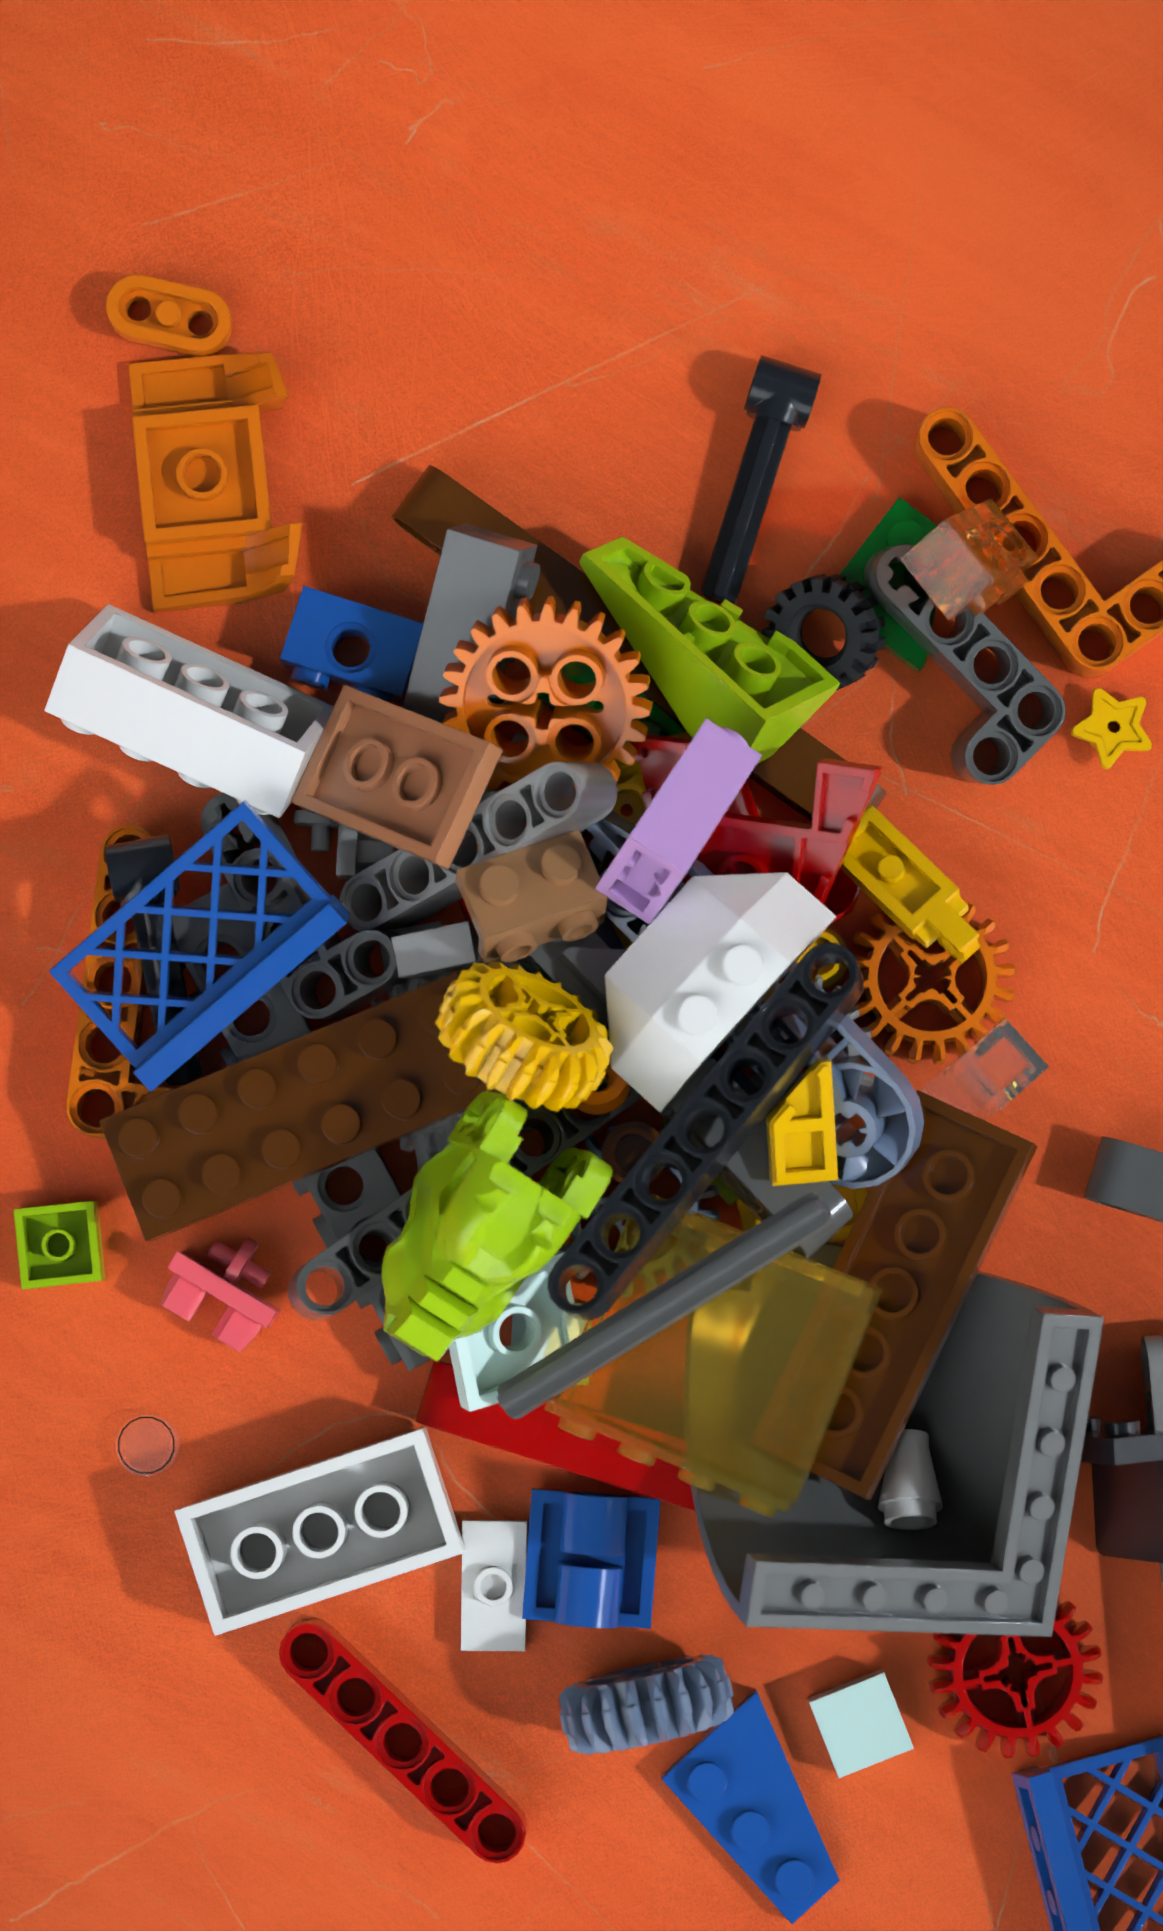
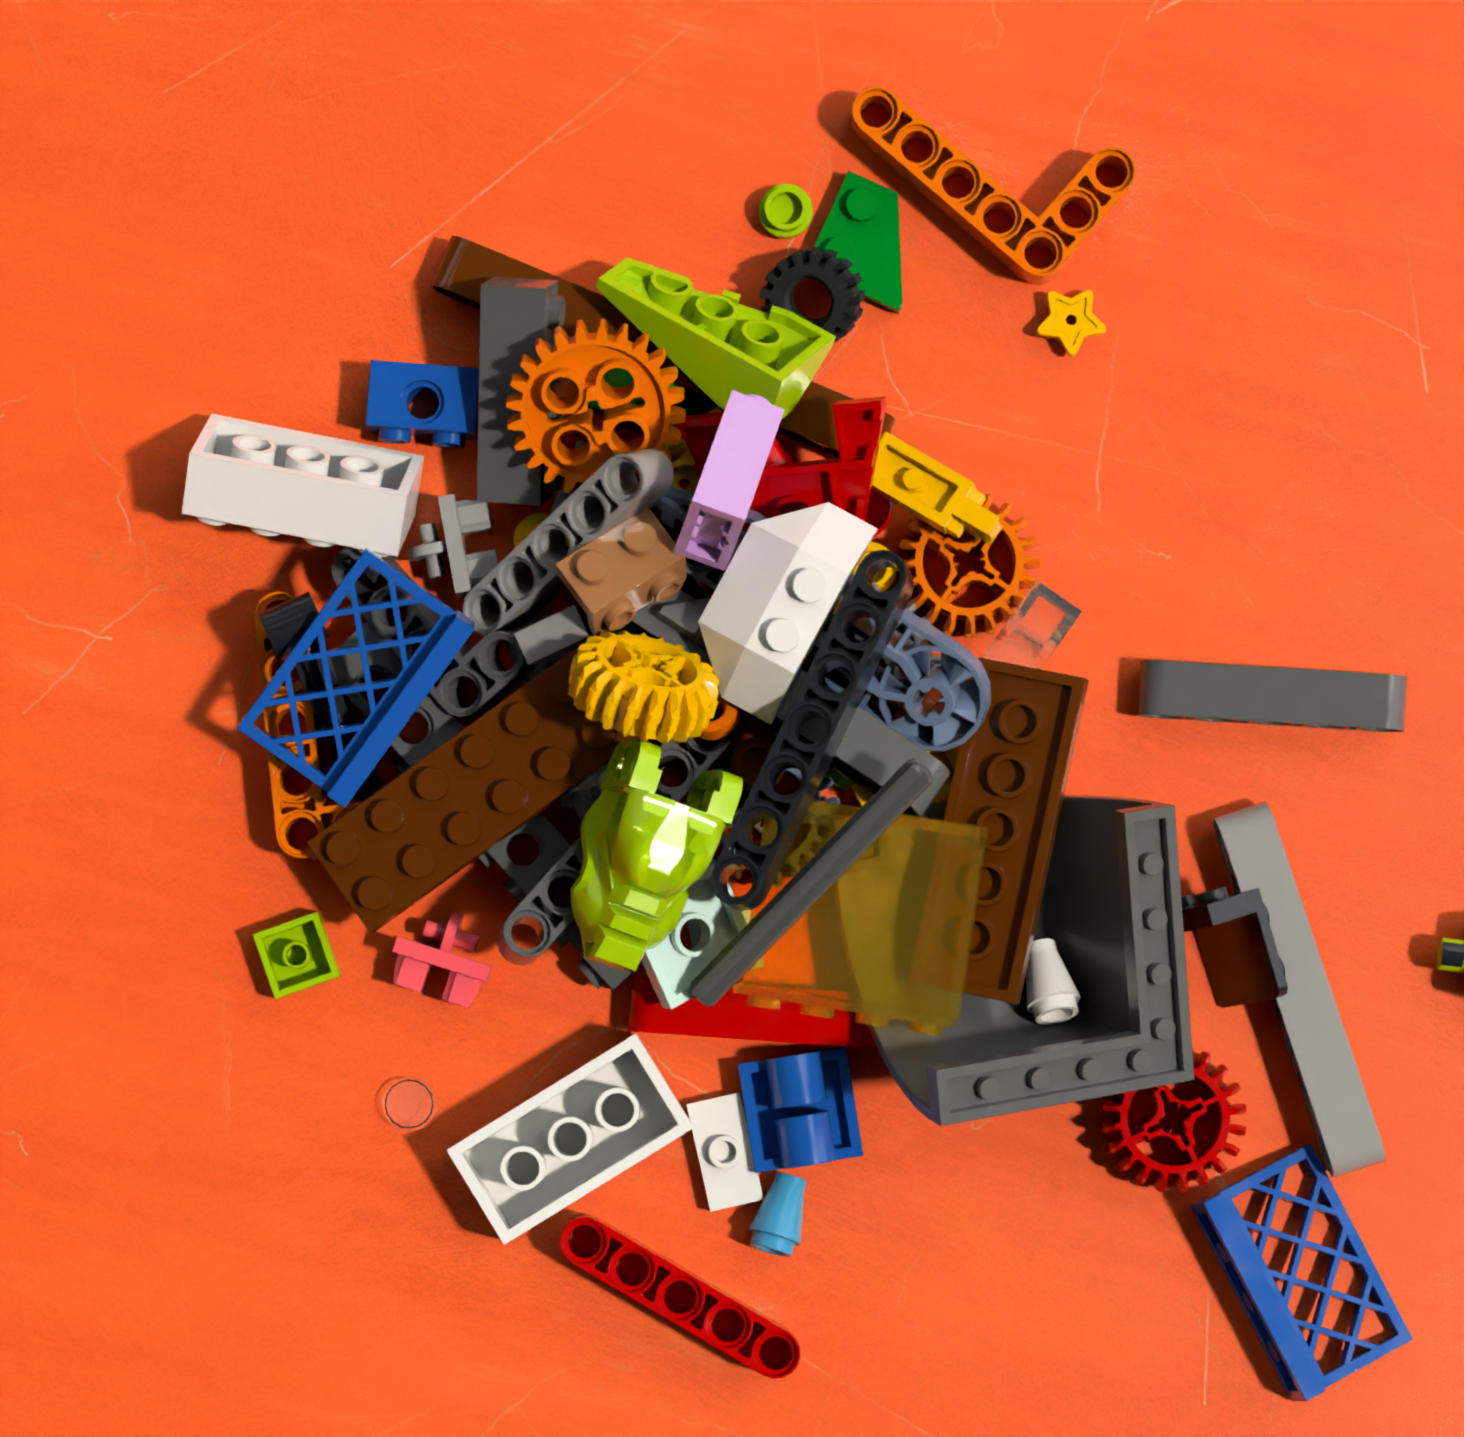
camera: 15 degrees left, 0 degrees up
(171, 314) = (206, 161): orange plate -> none
(208, 480) = (270, 291): orange piece -> none
(397, 776) = (487, 499): nougat plate -> none
(539, 1675) = (779, 1218): none -> dark azure cone
(646, 1704) = (874, 1217): sand blue gear -> none
(754, 1808) = (984, 1283): blue wing -> none
(778, 403) = (729, 115): black axle -> none
(803, 1130) = (892, 711): yellow tile -> none
(816, 526) = (785, 211): none -> lime plate
(860, 1723) = (1055, 1193): light aqua piece -> none
(956, 657) = (926, 292): dark grey beam -> none
(971, 561) = (920, 209): clear orange brick -> none

